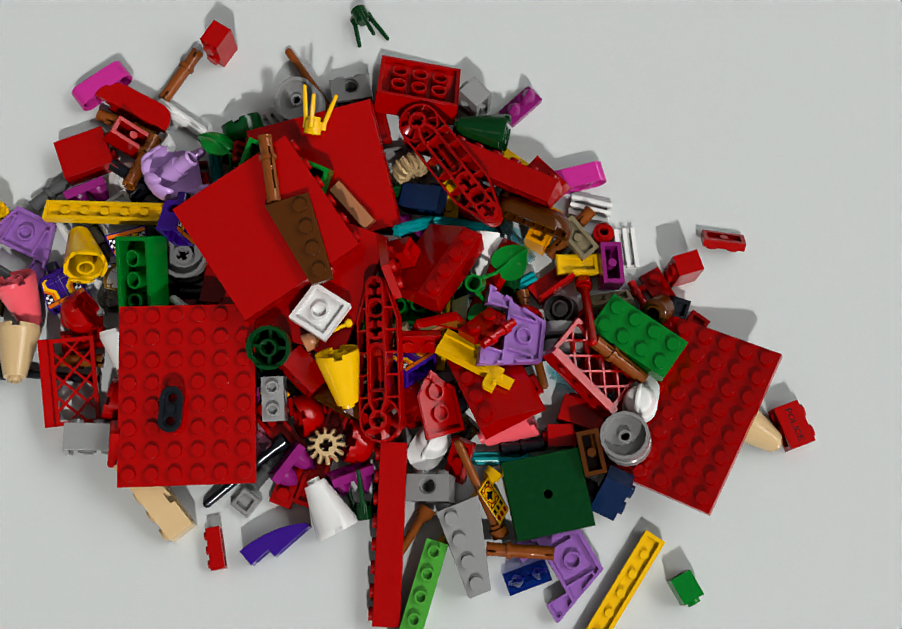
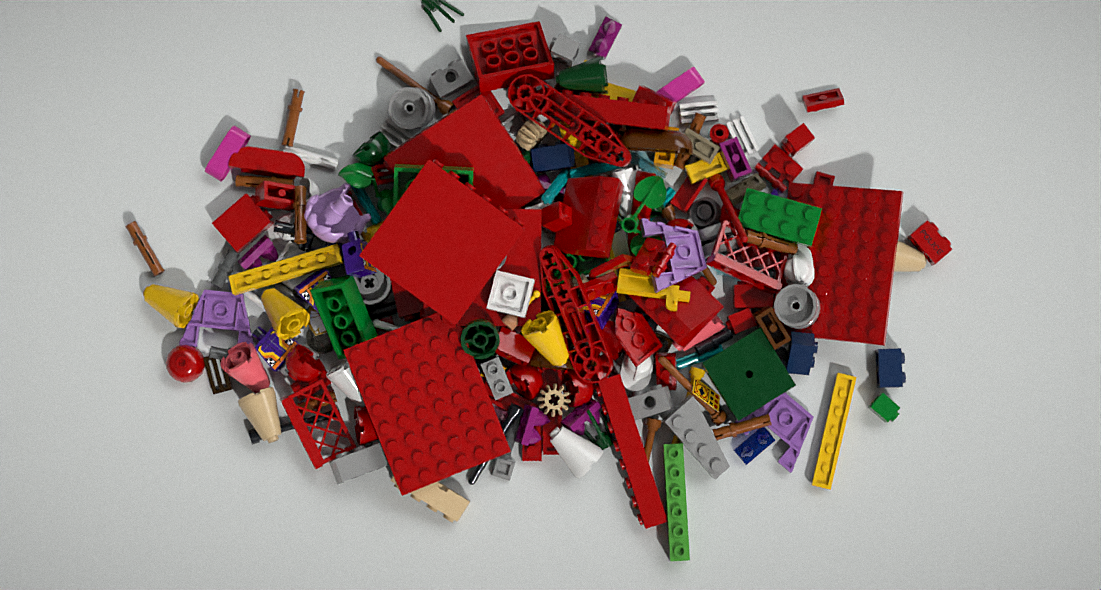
camera: 20 degrees left, 10 degrees up
(113, 440) = (381, 459): red tile -> none
(169, 409) = (422, 418): black plate -> none
(215, 548) = (494, 514): red piece -> none
(218, 43) = (317, 79): red brick -> none
(268, 159) = (428, 193): dark orange pin -> none
(274, 542) = (541, 491): dark purple slope -> none
(301, 232) = (473, 235): reddish brown wing -> none
(311, 123) = (441, 133): yellow plant -> none
(352, 205) = (500, 190): nougat piece -> none
(390, 268) = (555, 236): red plate -> none
(659, 308) = (788, 184): reddish brown head -> none
(681, 306) = (803, 174): black tile -> none
(705, 546) = (889, 368): none -> dark blue brick

